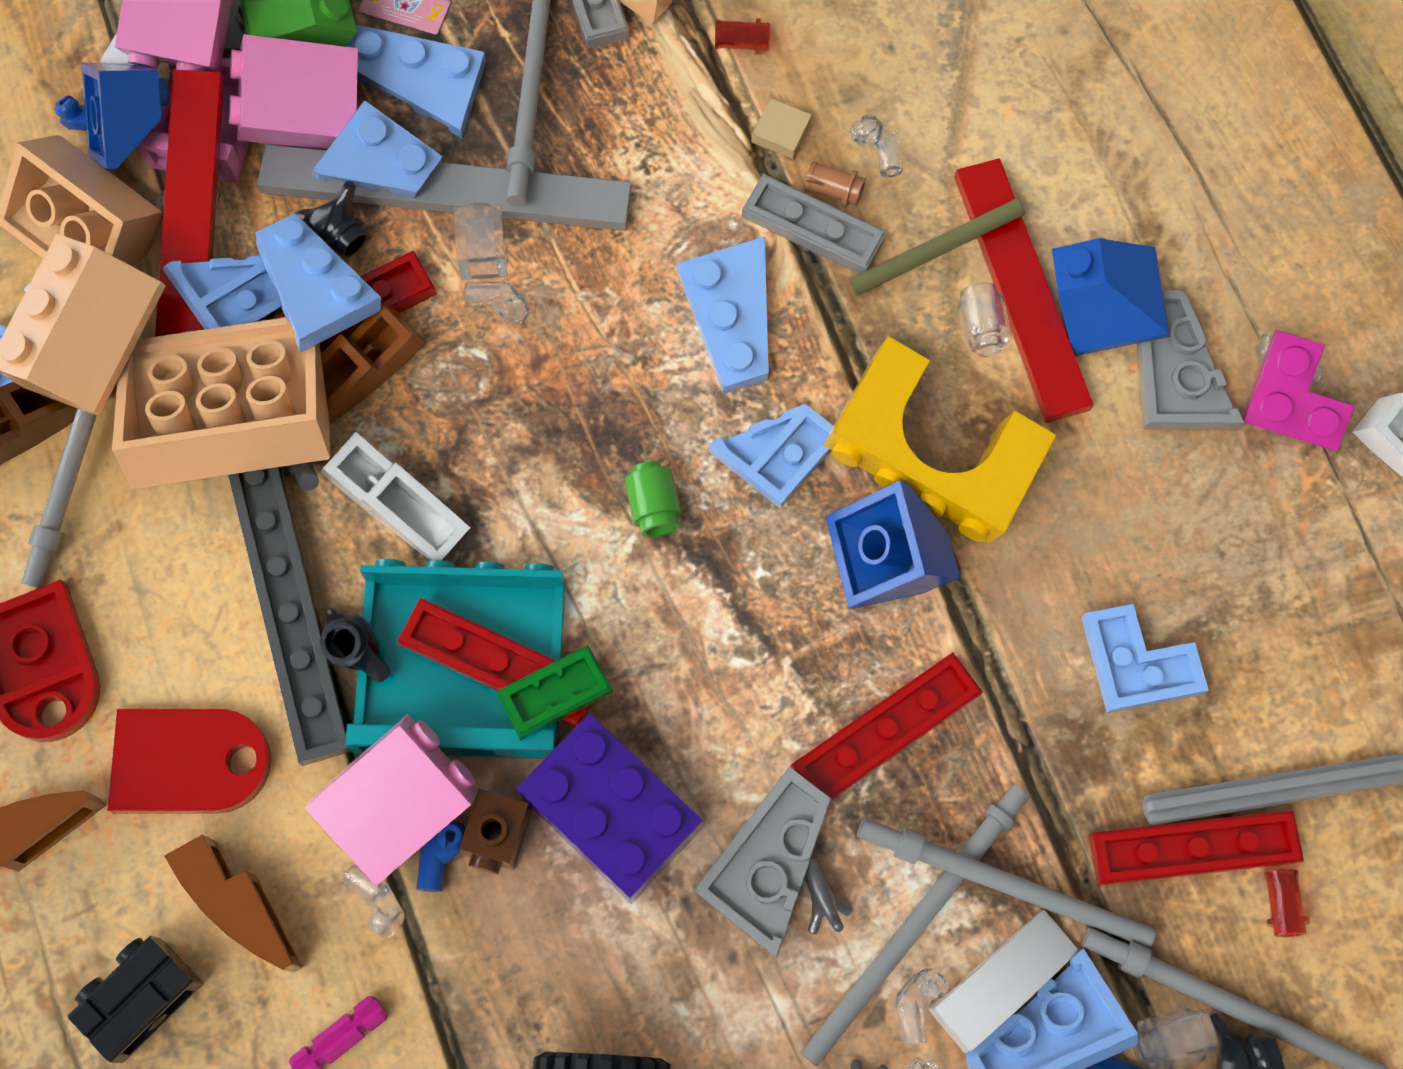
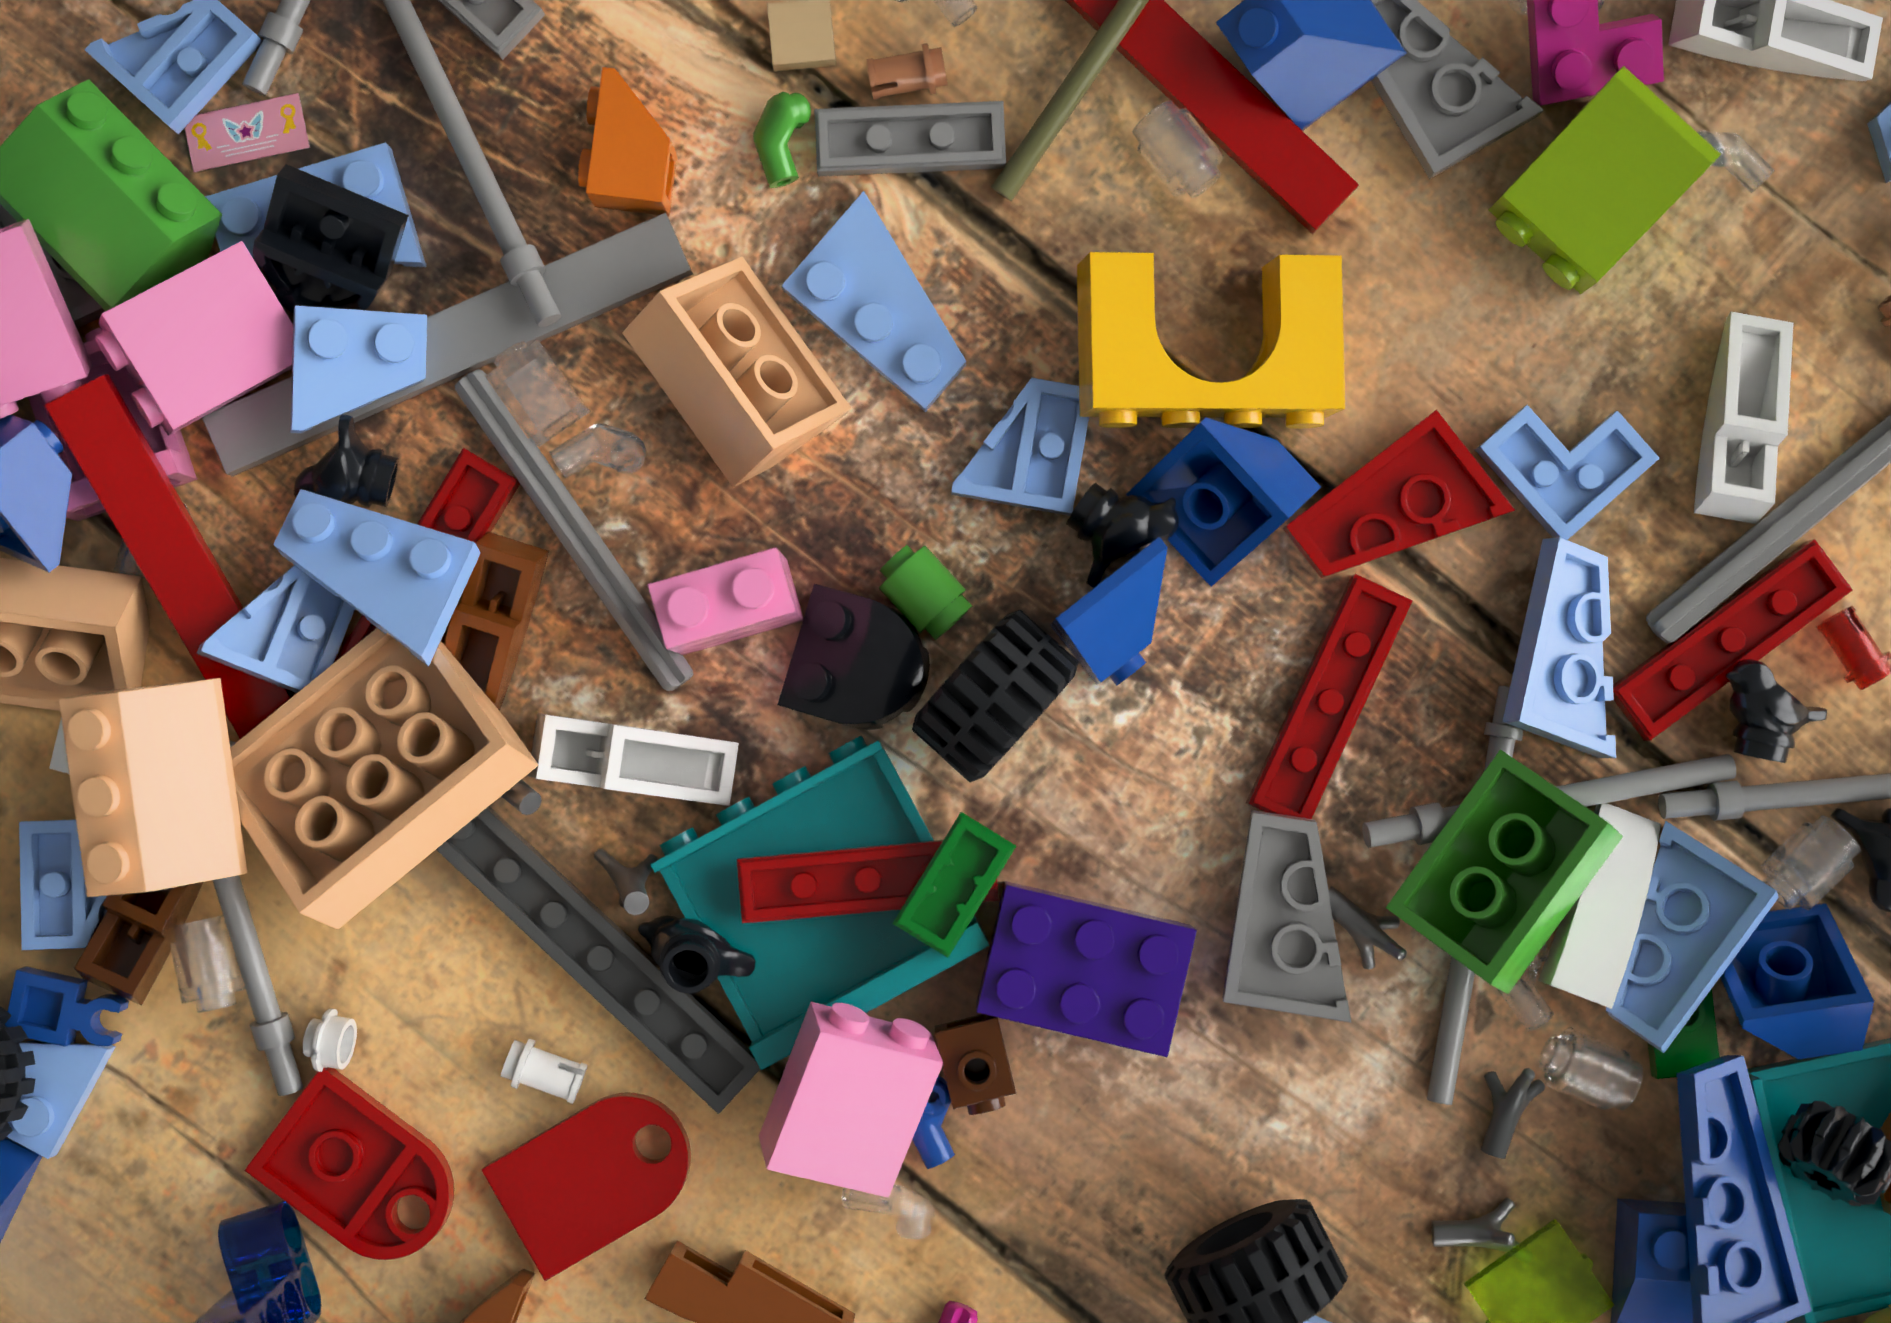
camera: 25 degrees left, 15 degrees up
(33, 469) = (206, 964): none -> clear brick
(78, 566) = (330, 1041): none -> white plate
(202, 667) = (543, 1070): none -> white pin
(339, 574) = (628, 881): none -> flat silver bar
(410, 81) = (326, 243): none -> black slope
(450, 344) = (573, 530): none -> light grey axle
(517, 424) = (726, 602): none -> bright pink brick
(579, 520) = (854, 661): none -> black slope
(615, 296) = (735, 369): none -> light nougat slope
(629, 136) = (630, 153): none -> orange slope
(657, 582) = (995, 695): none -> black tyre
(727, 174) = (773, 132): none -> bright green arm
(771, 578) = (1116, 617): none -> blue slope
(808, 529) = (1119, 525): none -> black animal
(946, 907) = (1504, 871): none -> bright green slope
(1009, 619) = (1397, 500): none -> red wing
(1066, 787) = (1559, 664): none -> light blue wing
(1196, 911) = (1765, 712): none -> black animal
(1261, 485) = (1602, 182): none -> lime slope
(1282, 700) = (1745, 419): none -> white slope
(1359, 519) = (1739, 158): none -> clear arm

